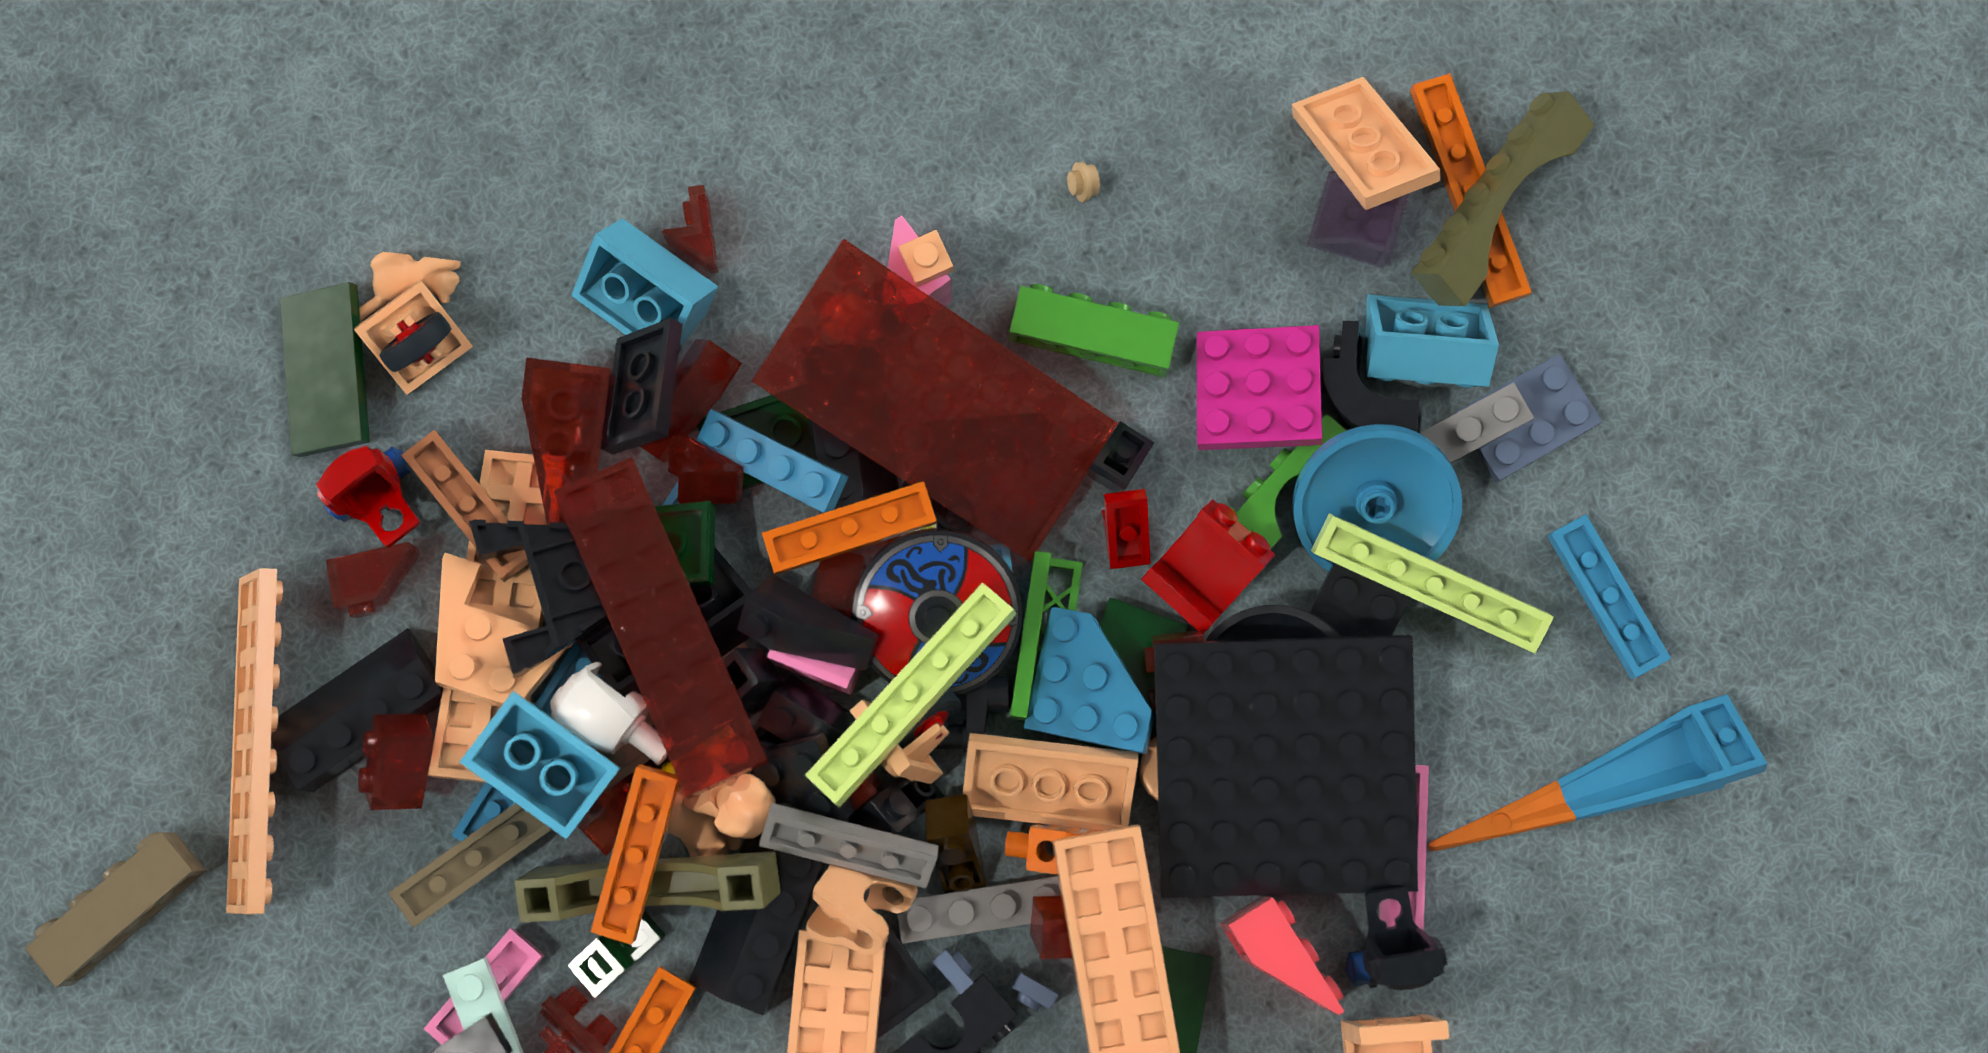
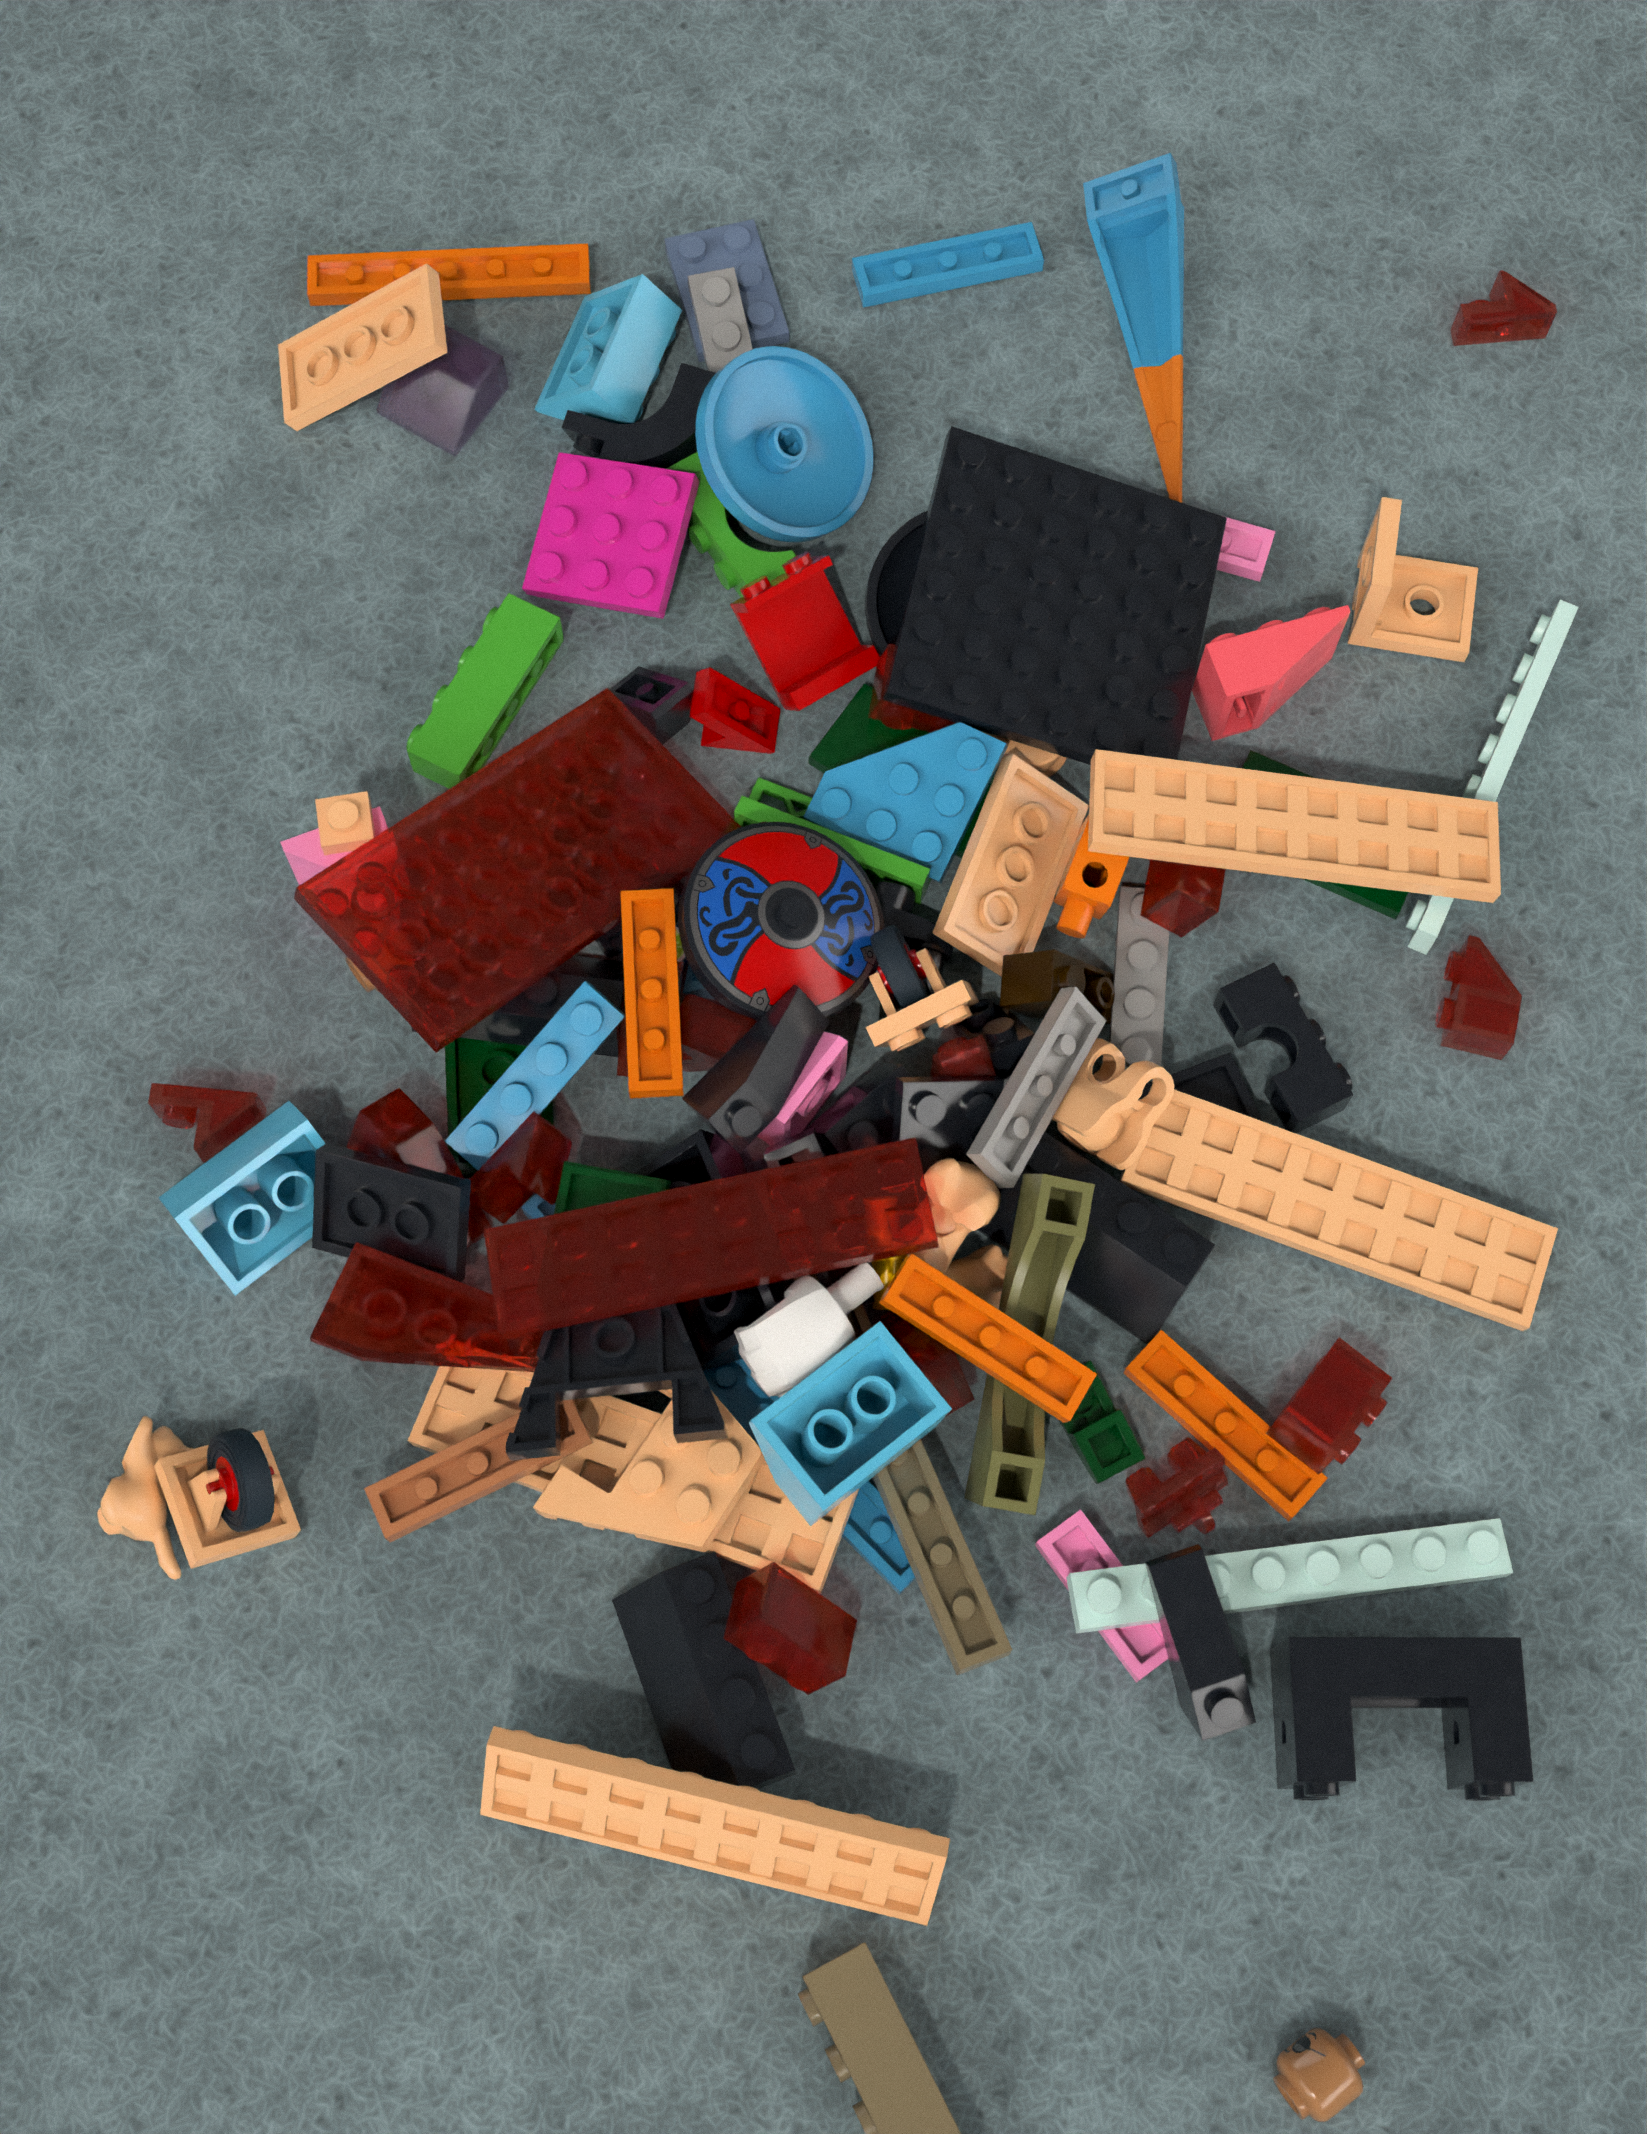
camera: 75 degrees left, 10 degrees down
(324, 370) = (230, 1631): dark green tile -> none
(365, 484) = (414, 1599): red piece -> none
(369, 577) = (532, 1631): clear red slope -> none
(910, 694) = (879, 958): yellowish green plate -> none
(955, 969) = (1205, 1027): sand blue plate -> none
(1033, 993) = (1249, 946): sand blue plate -> none
(1083, 181) = (299, 661): tan plate -> none
(1358, 604) = (887, 498): black plate -> none
(1395, 955) = (1290, 551): black piece -> none
(1432, 583) = (886, 420): yellowish green plate -> none
(1460, 254) = (522, 290): olive arch -> none

